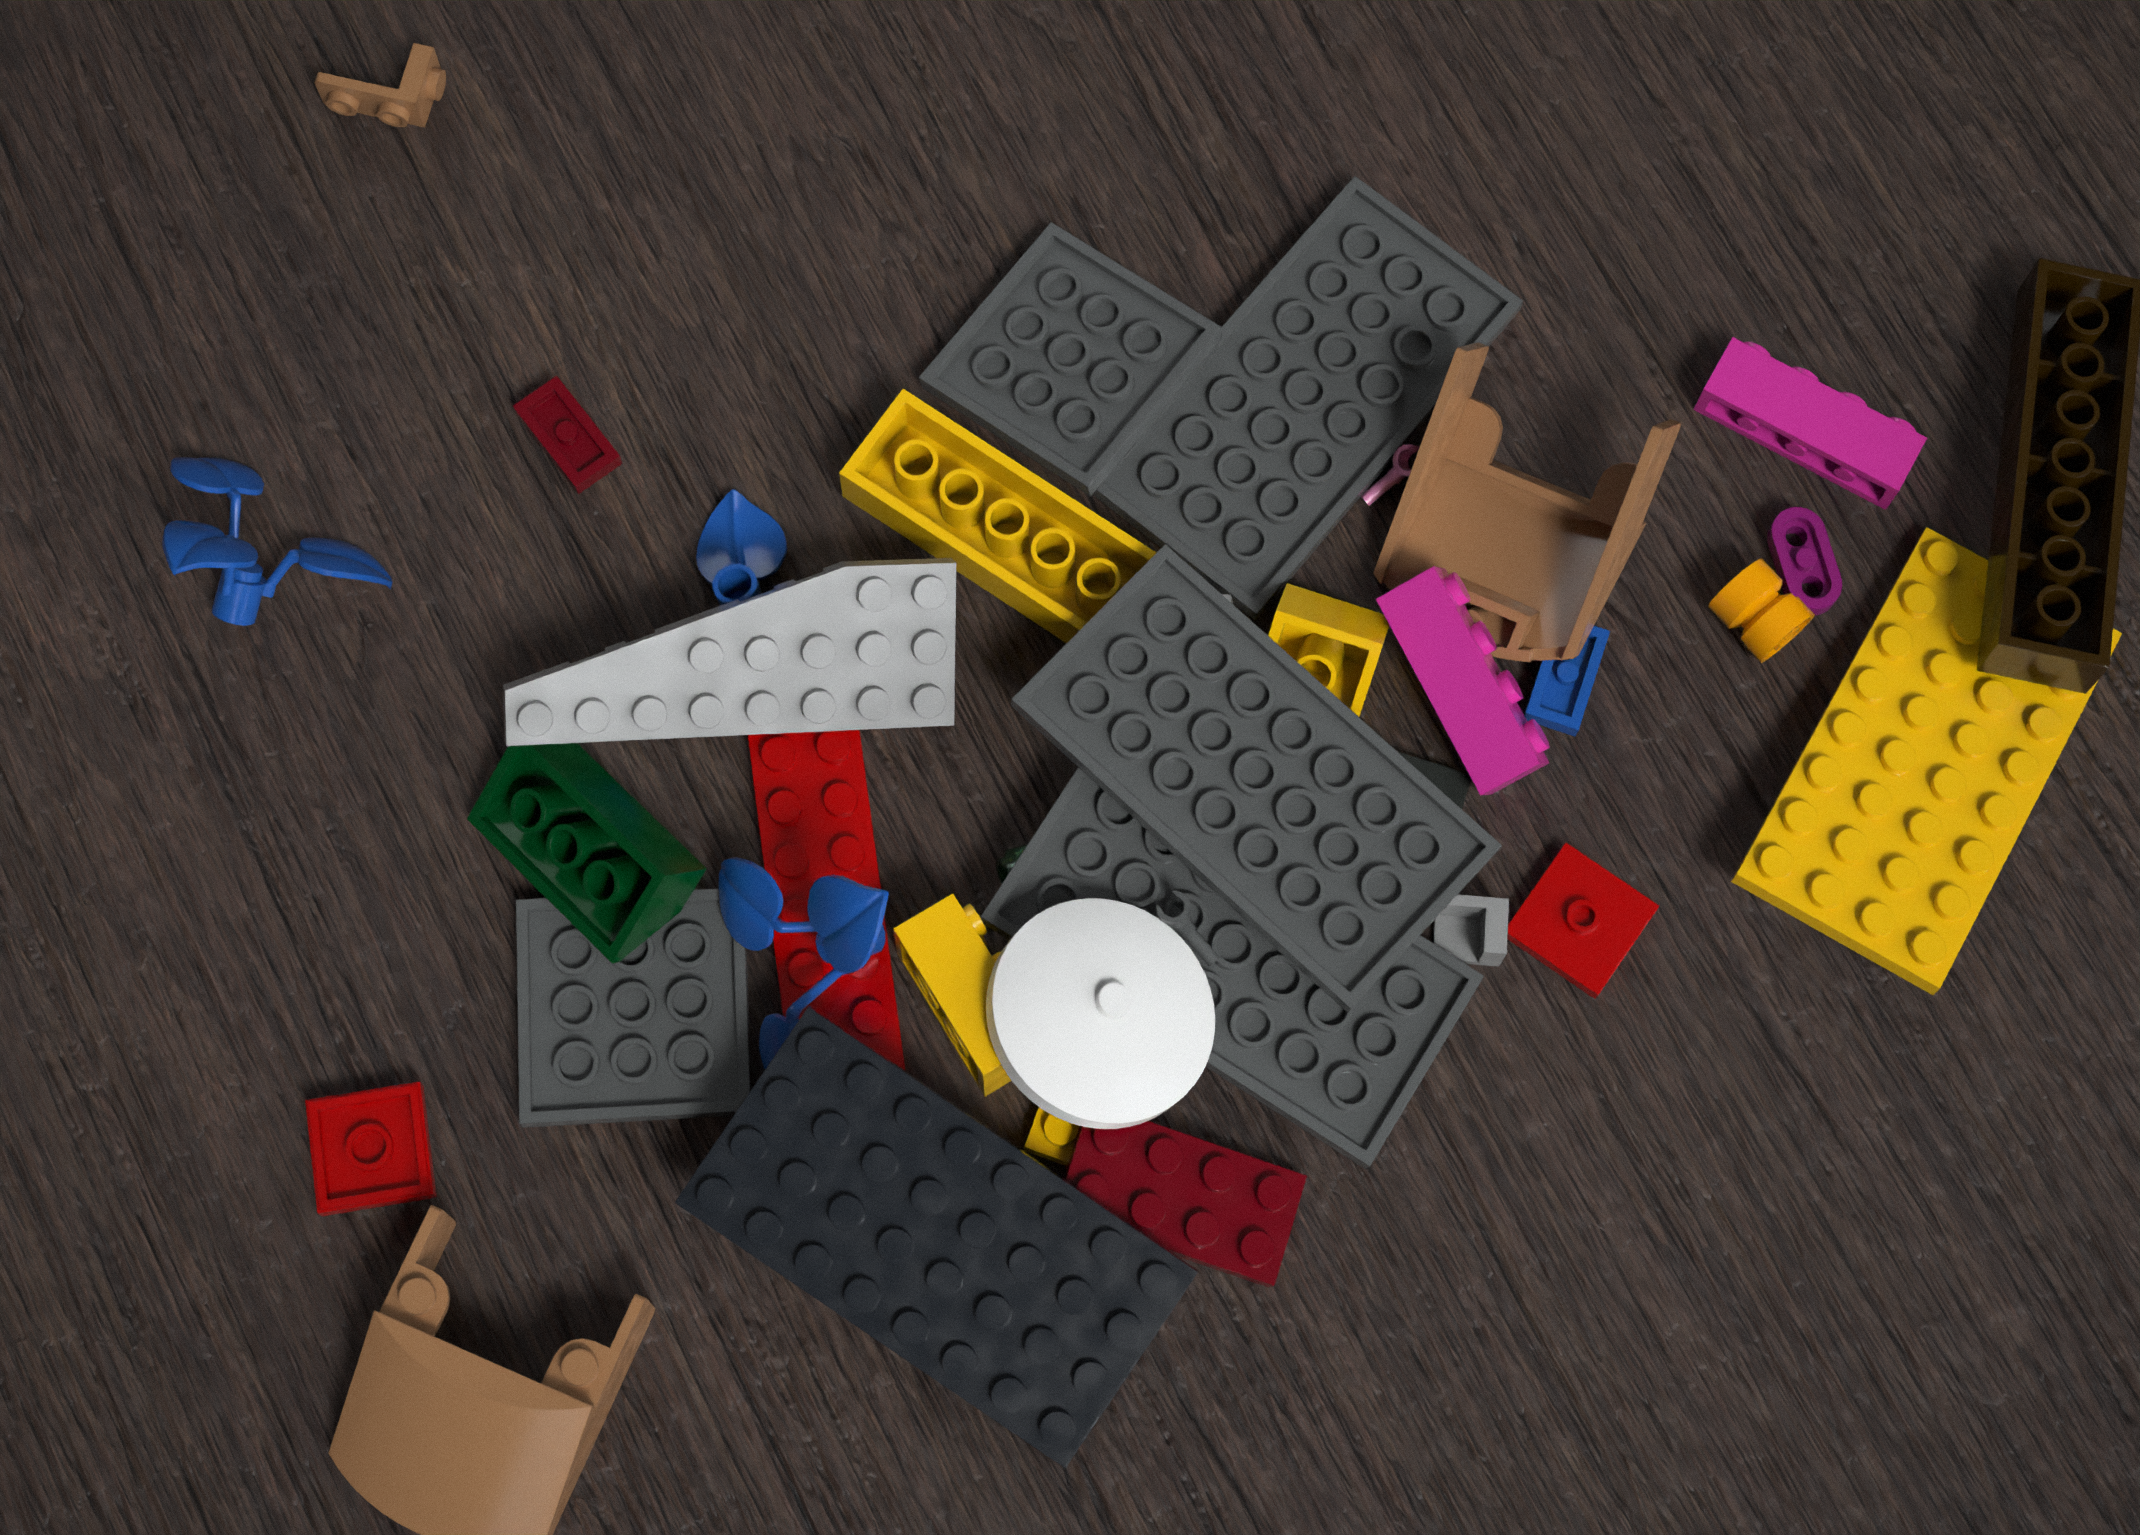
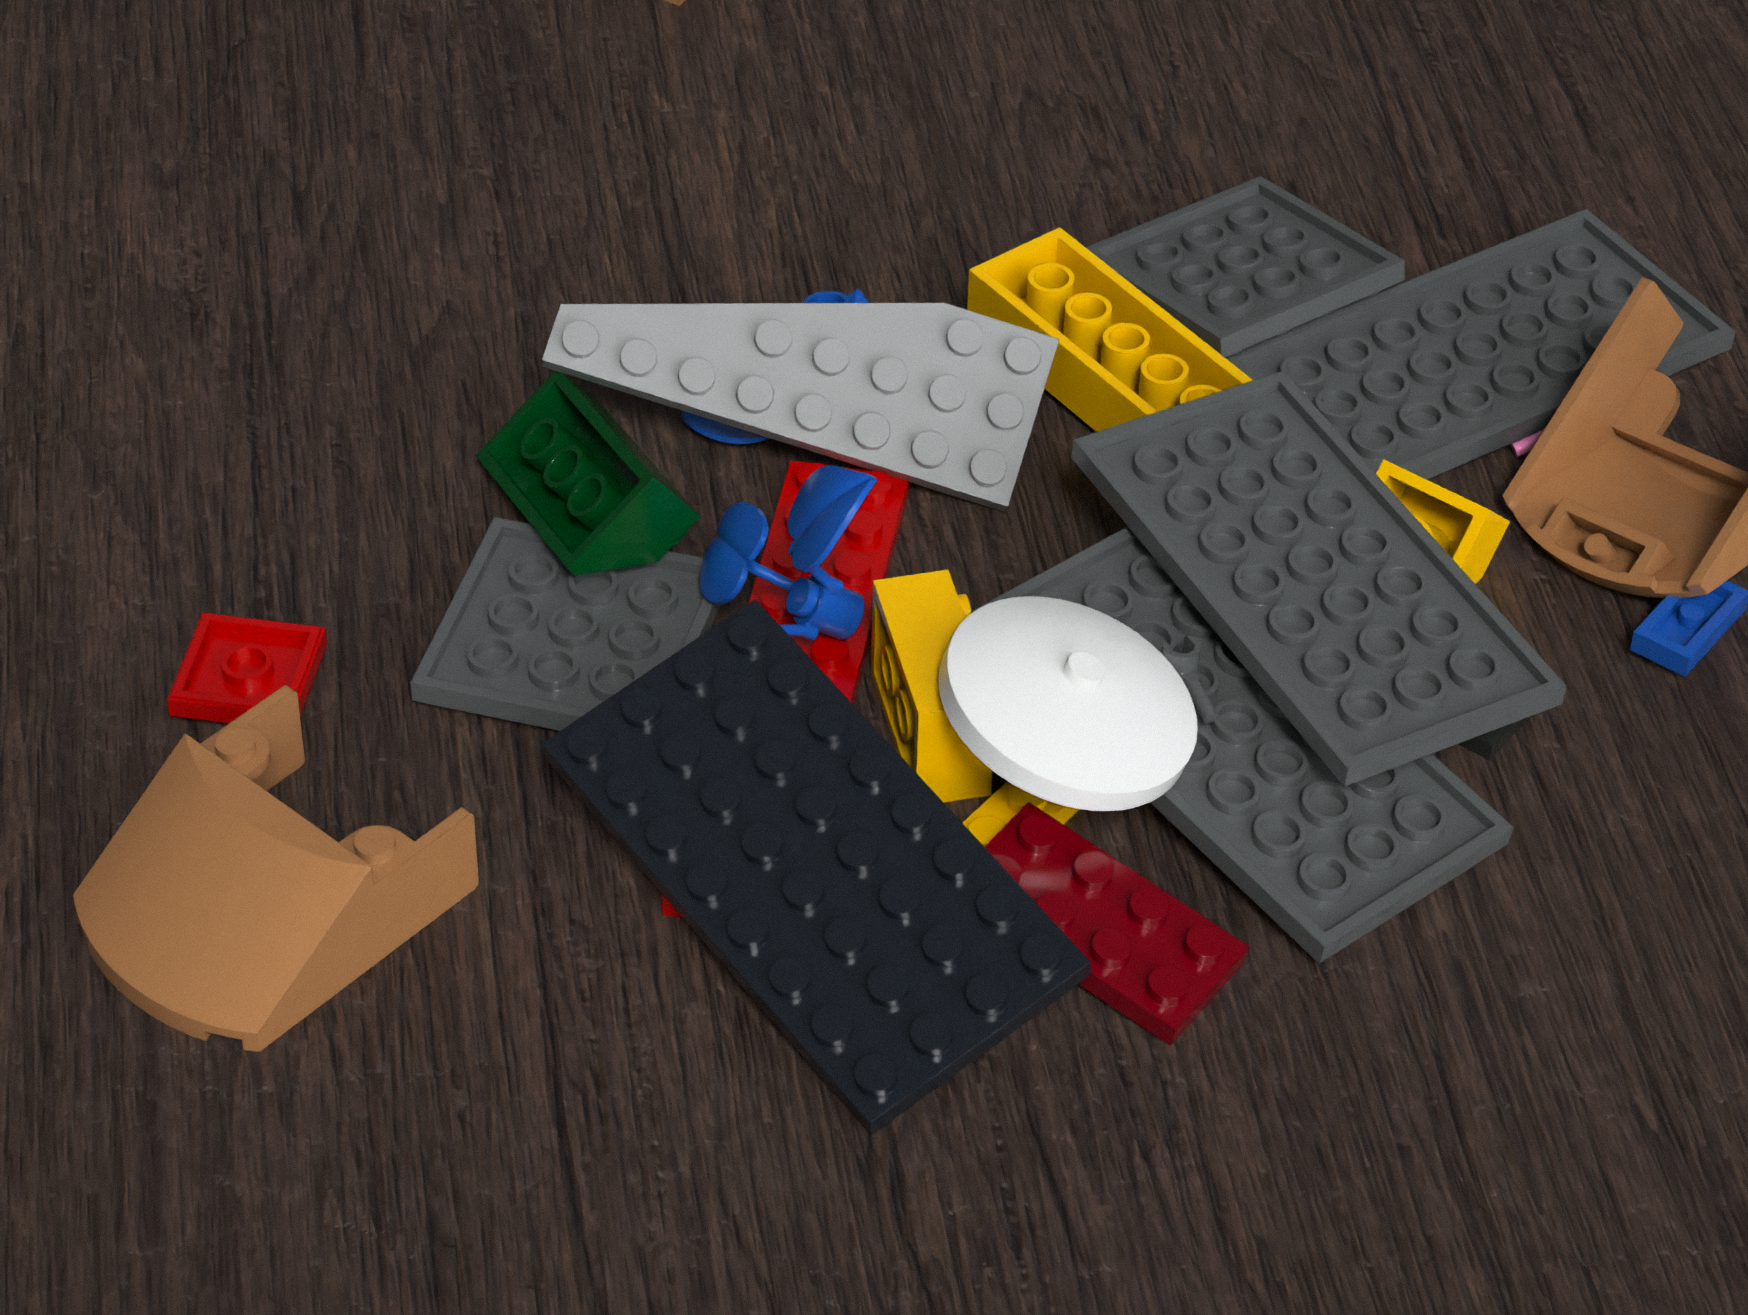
camera: 20 degrees right, 30 degrees down
(241, 582) = (342, 233): blue plant -> none
(567, 434) = (712, 217): dark red plate -> none
(1463, 679) = (1571, 580): dark pink brick -> none
(1474, 929) = (1518, 784): light grey panel -> none
(1580, 920) = (1642, 822): red plate -> none

